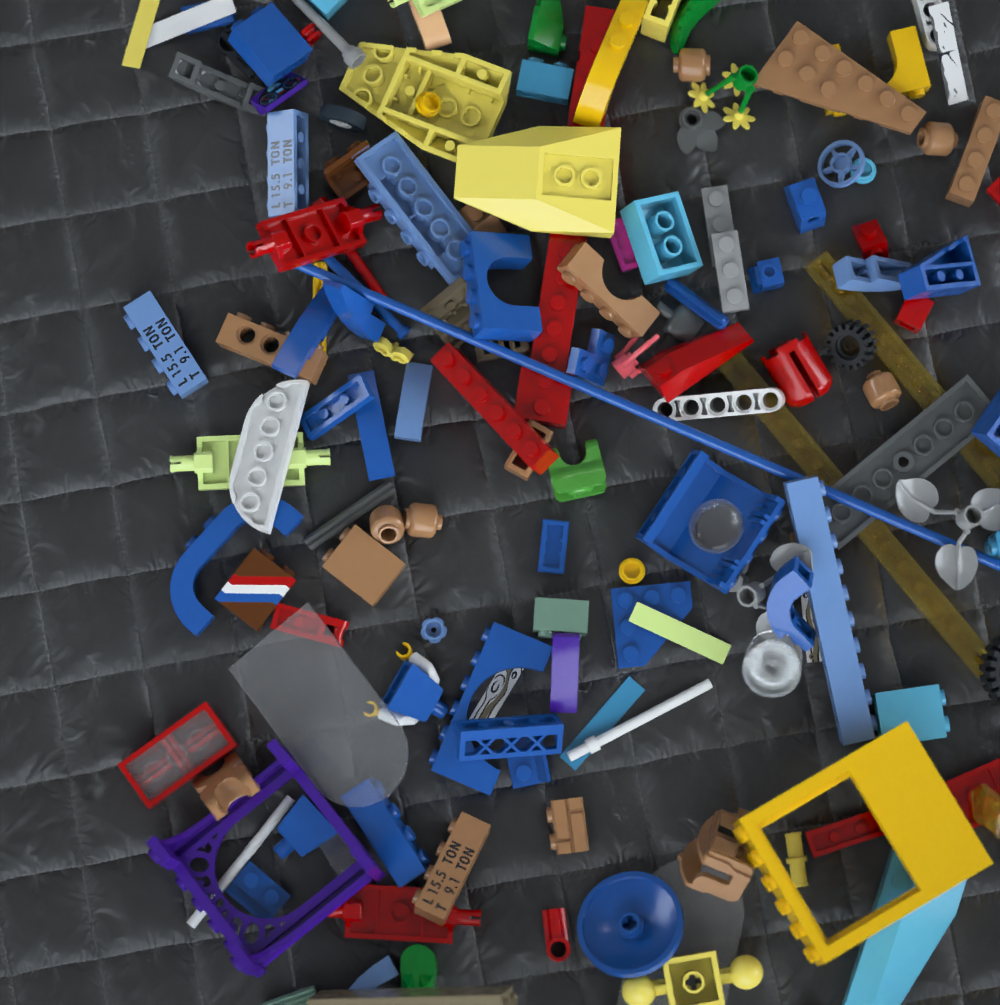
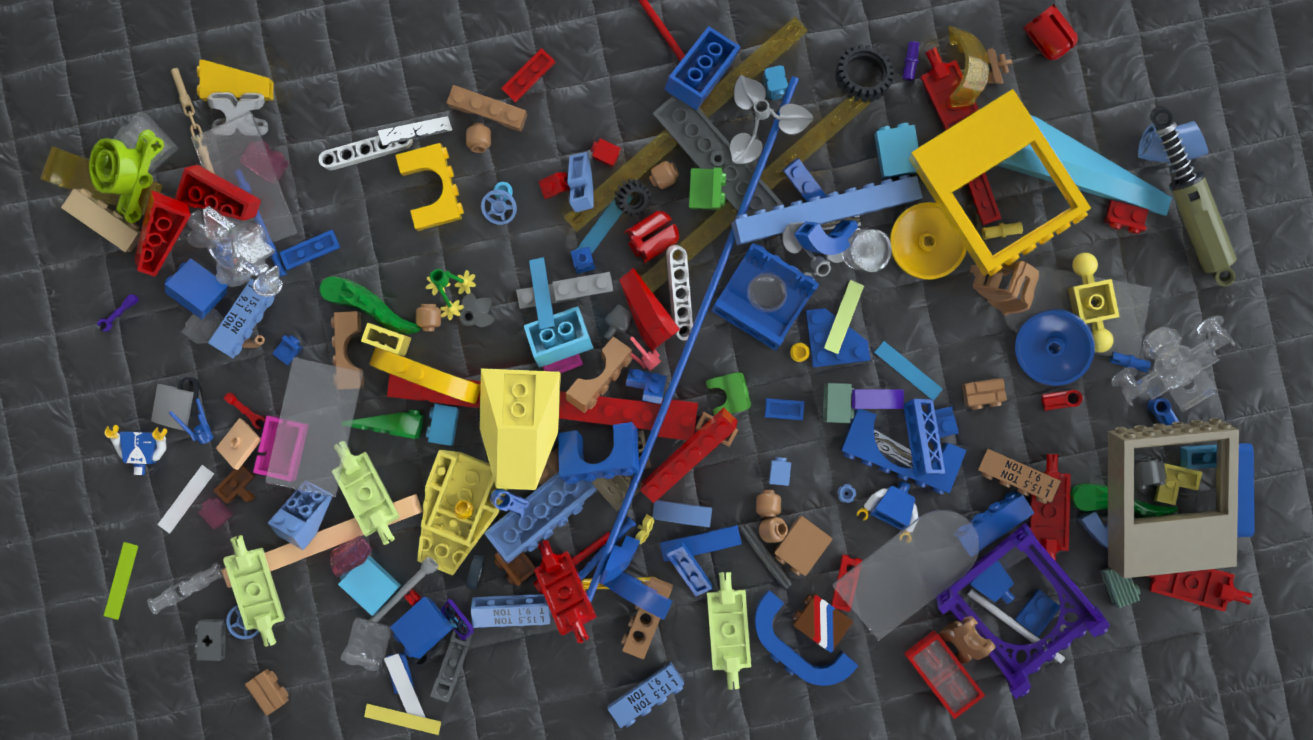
camera: 90 degrees left, 5 degrees up
(266, 452) = (725, 620): white plate -> none
(437, 166) = (511, 502): none -> piece
(466, 537) = (779, 471): none -> medium blue brick
(594, 743) = (924, 377): white bar -> none
(696, 304) = (606, 310): blue axle -> none
(721, 218) = (541, 293): none -> dark azure sticker
(780, 747) = (925, 242): none -> yellow dish
(806, 204) = (529, 232): blue torso -> none
(813, 306) = (602, 226): none -> dark azure sticker
(827, 78) = (437, 217): medium nougat wing -> none
(861, 443) = (707, 189): none -> bright green bracket
(871, 580) = (803, 181): none -> plate
(942, 273) = (577, 132): blue wedge -> none

